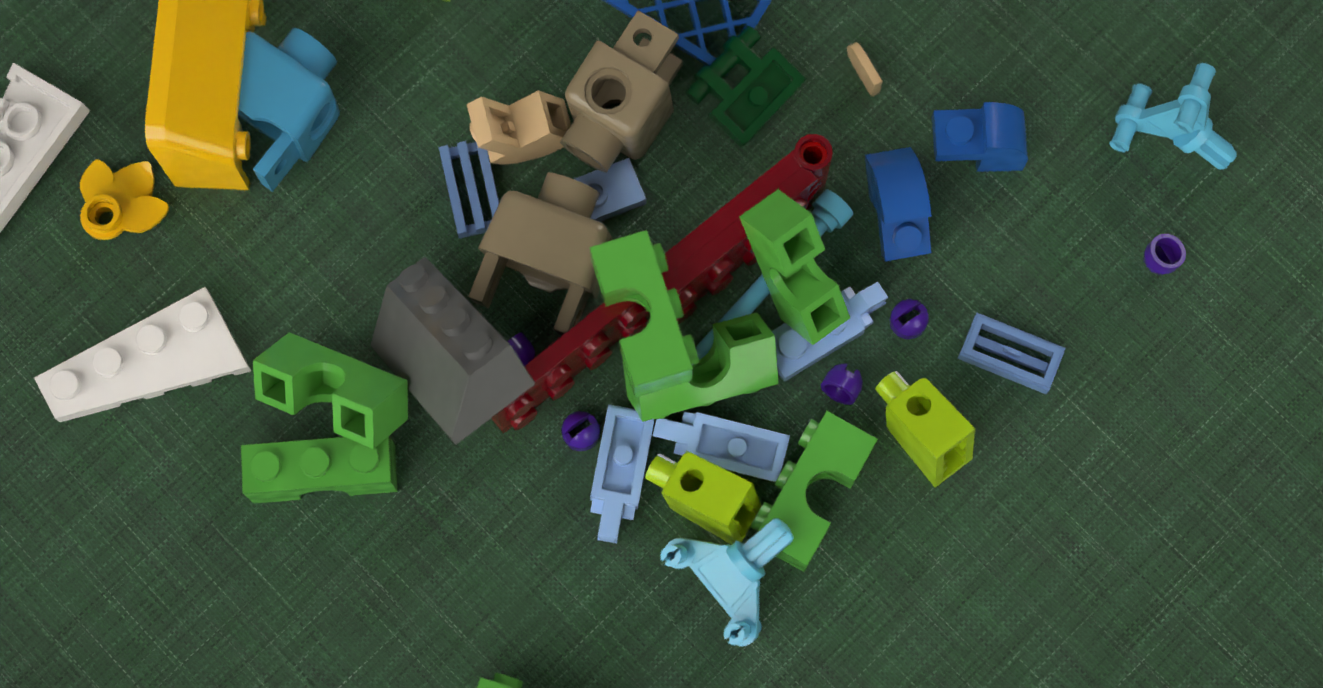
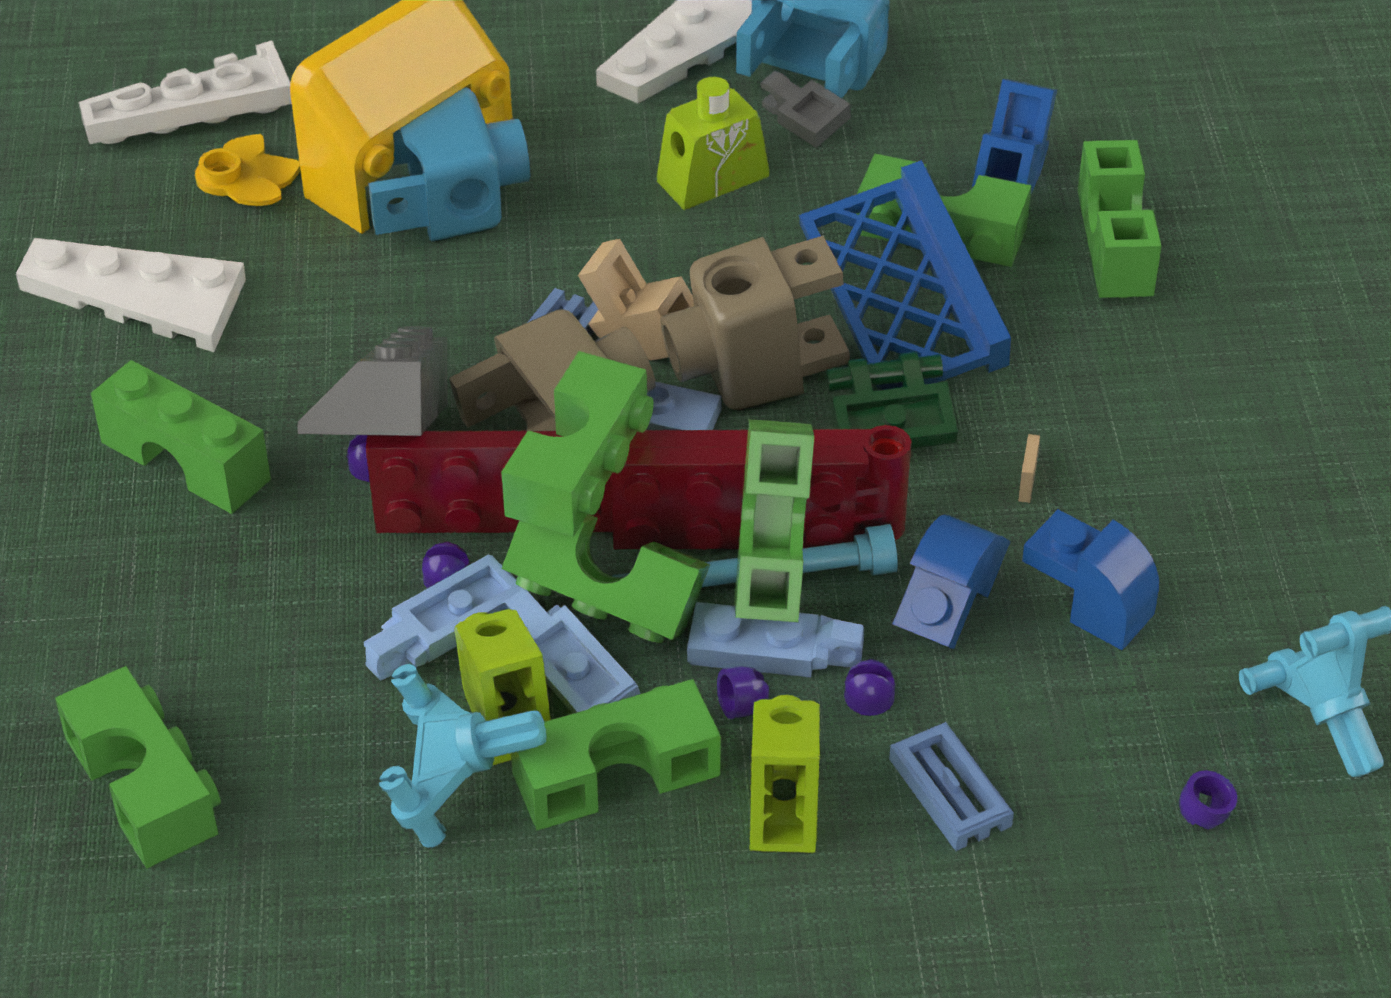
camera: 40 degrees right, 30 degrees down
(364, 398) = (259, 372): bright green arch -> none

